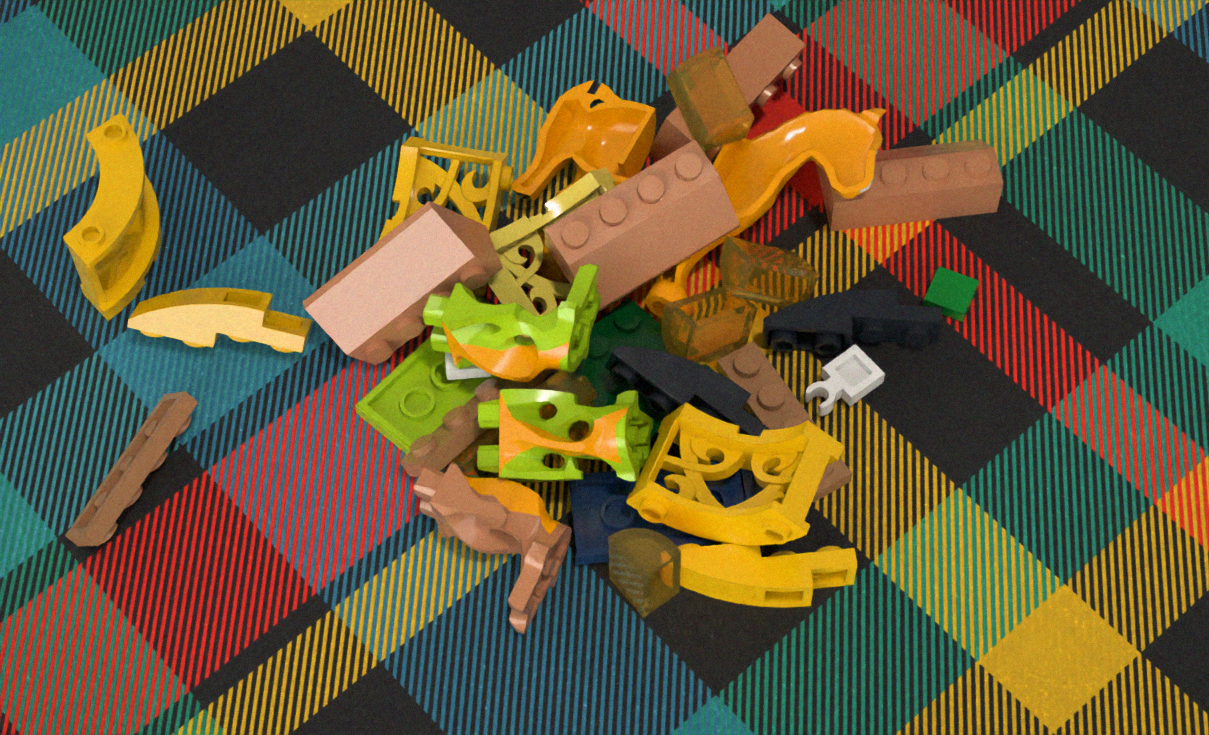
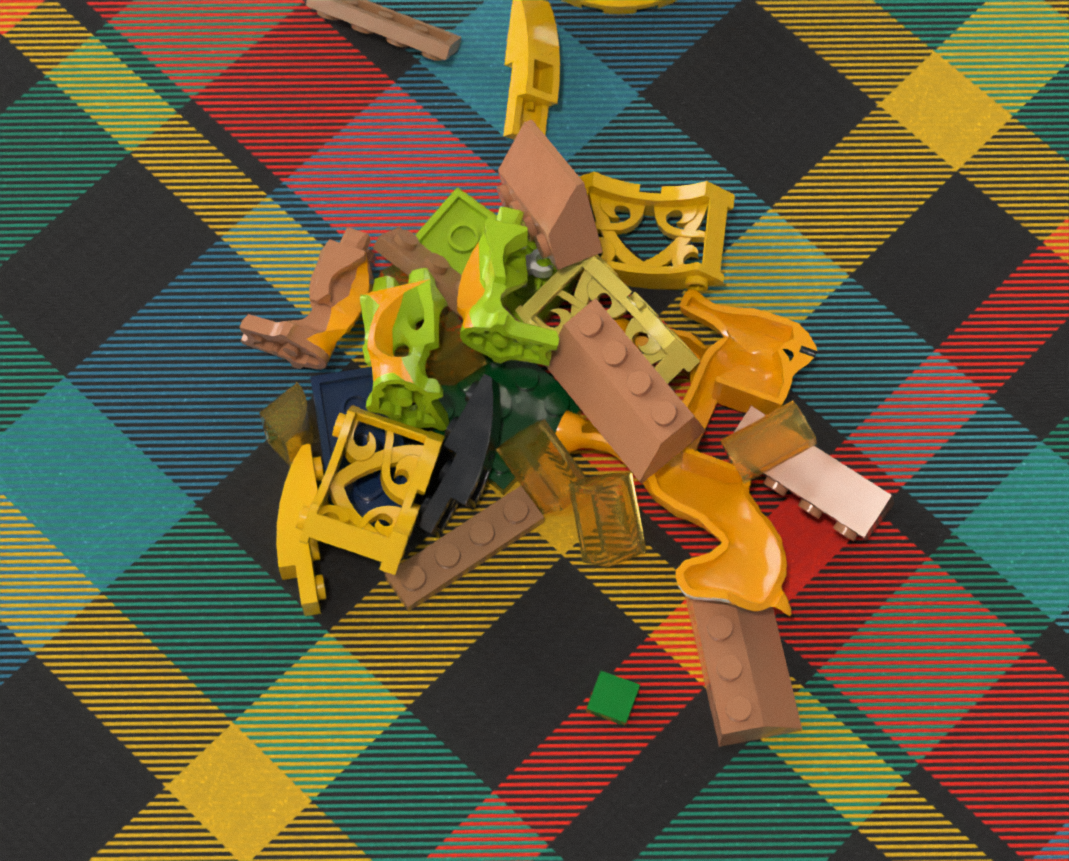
camera: 85 degrees right, 10 degrees up
(834, 319) = (565, 588): black slope -> none
(845, 377) = (509, 602): white plate -> none

